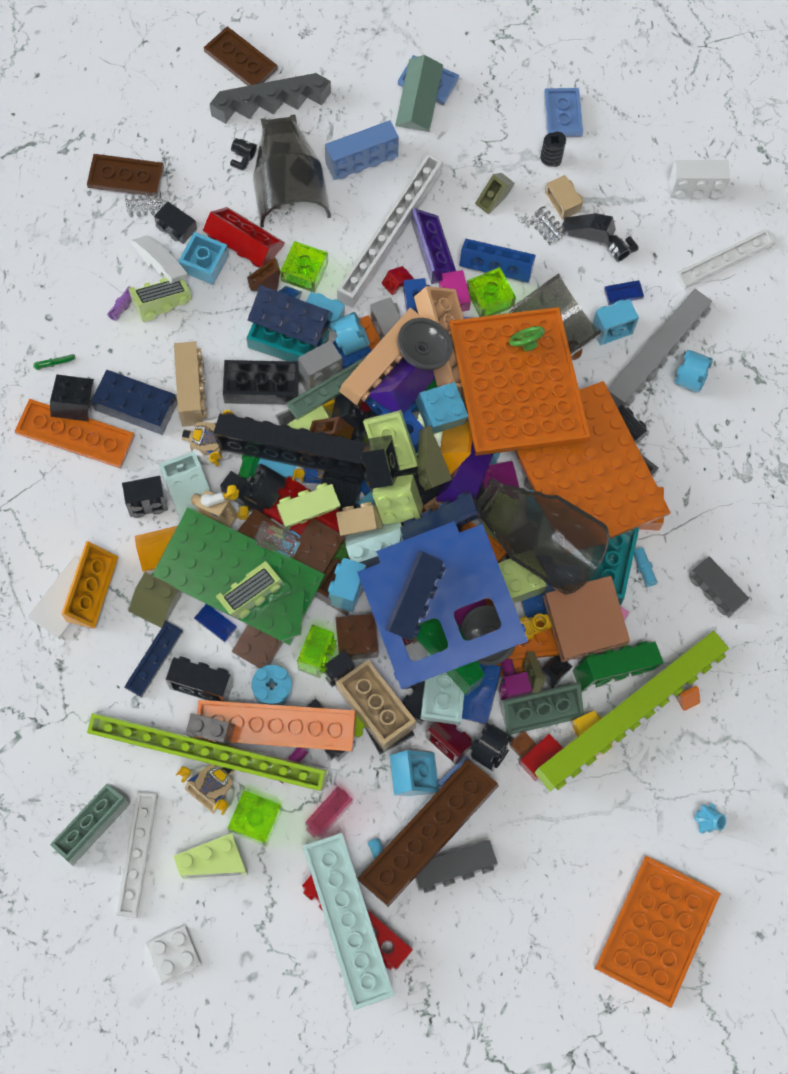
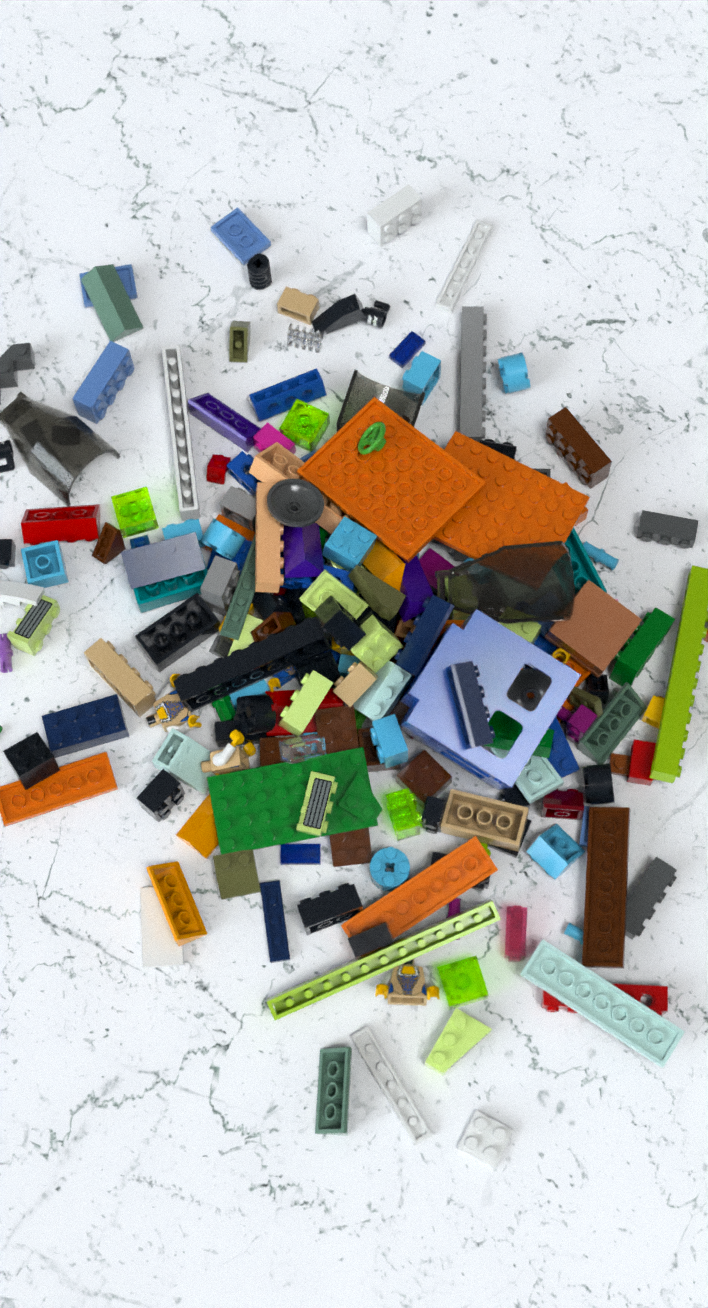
camera: 30 degrees left, 0 degrees up
(696, 468) = (577, 448): none -> reddish brown brick

